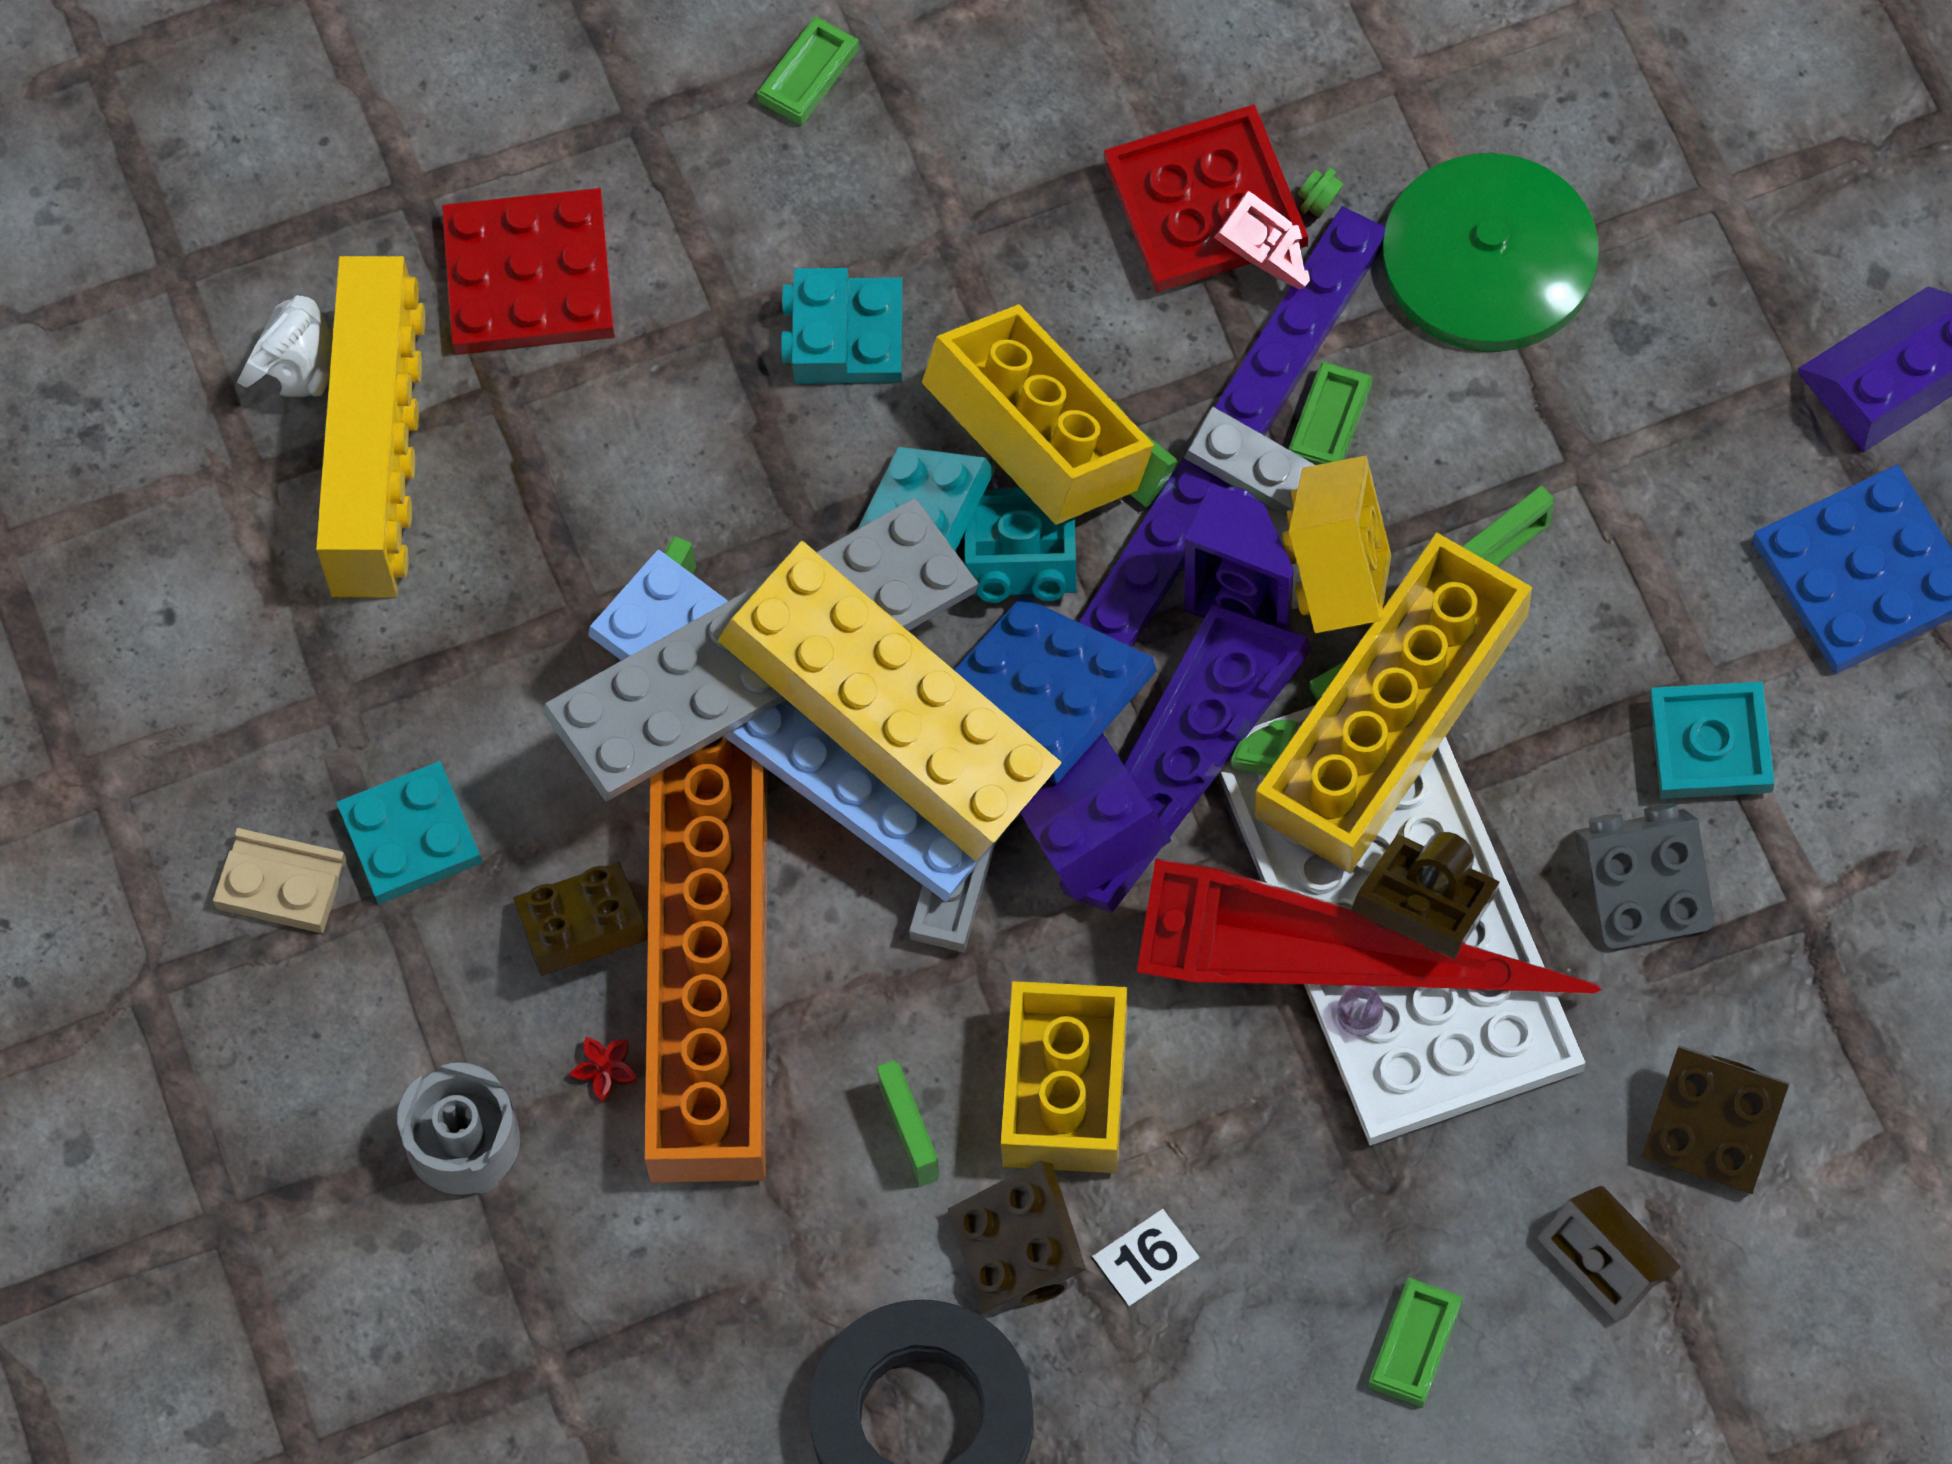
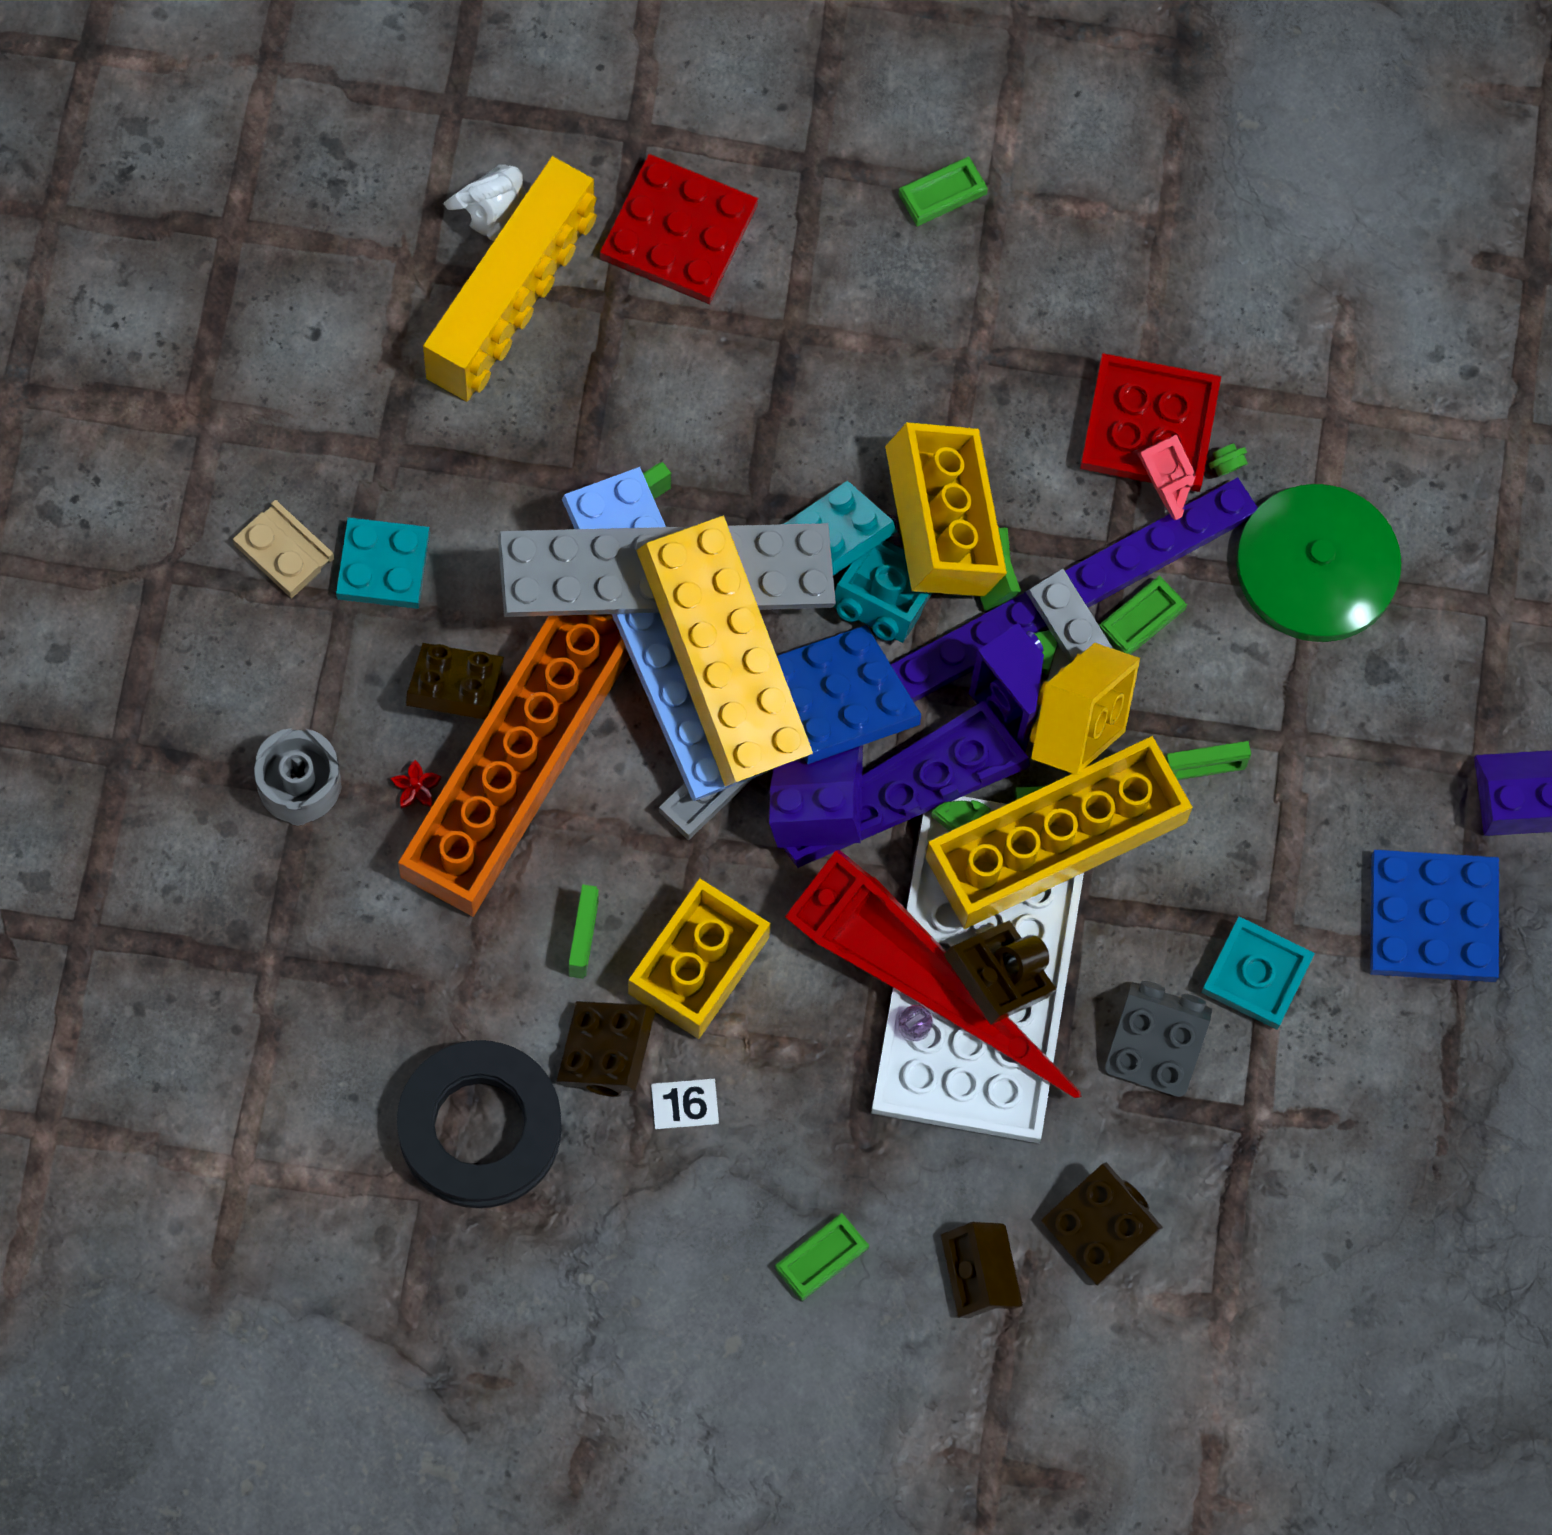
camera: 20 degrees right, 5 degrees up
(843, 327) = (860, 379): teal plate -> none

